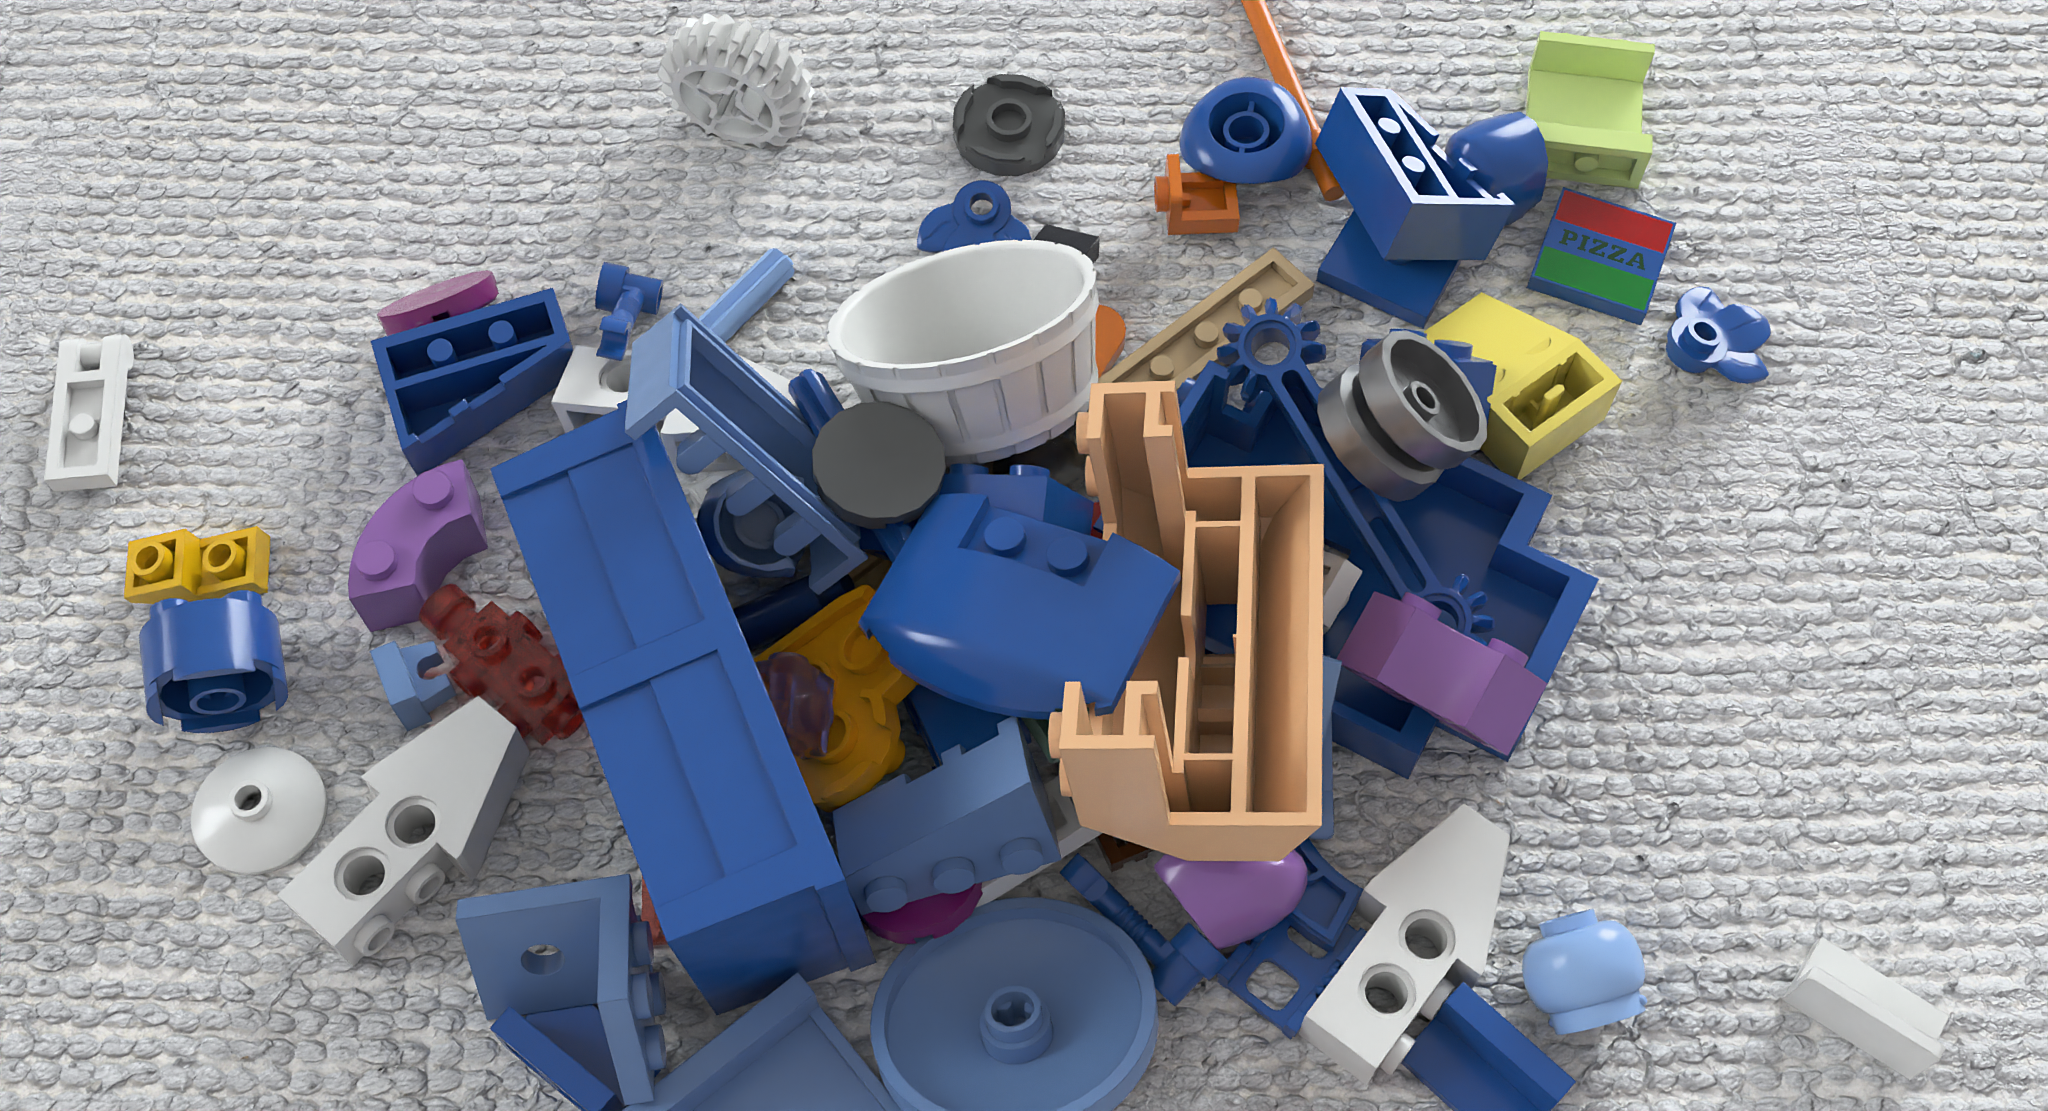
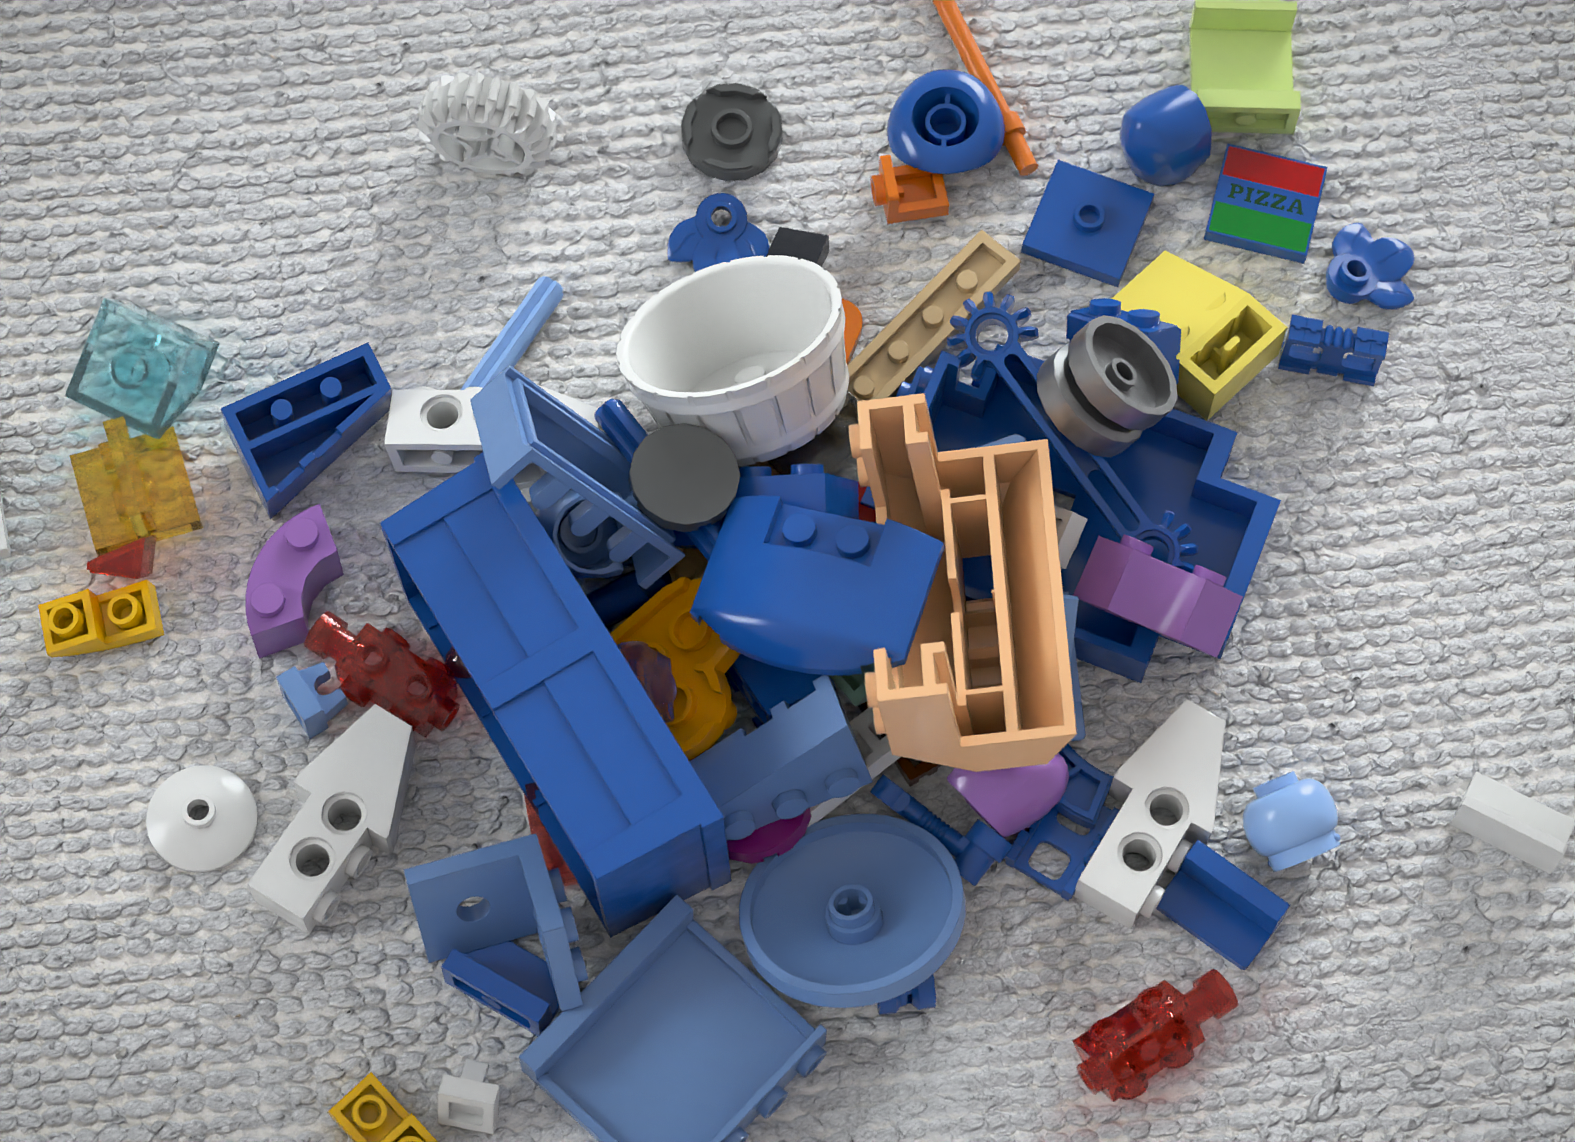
camera: 10 degrees left, 5 degrees up
(212, 662) = (146, 701): blue brick -> none
(241, 500) = (128, 561): none -> clear red slope
(271, 426) = (134, 488): none -> clear yellow bracket
(304, 295) = (140, 367): none -> clear light blue slope
(439, 302) = (261, 359): magenta tile -> none
(625, 297) = (428, 335): blue brick -> none
(1403, 184) = (1087, 162): blue wedge -> none
(1675, 410) = (1334, 345): none -> blue piece

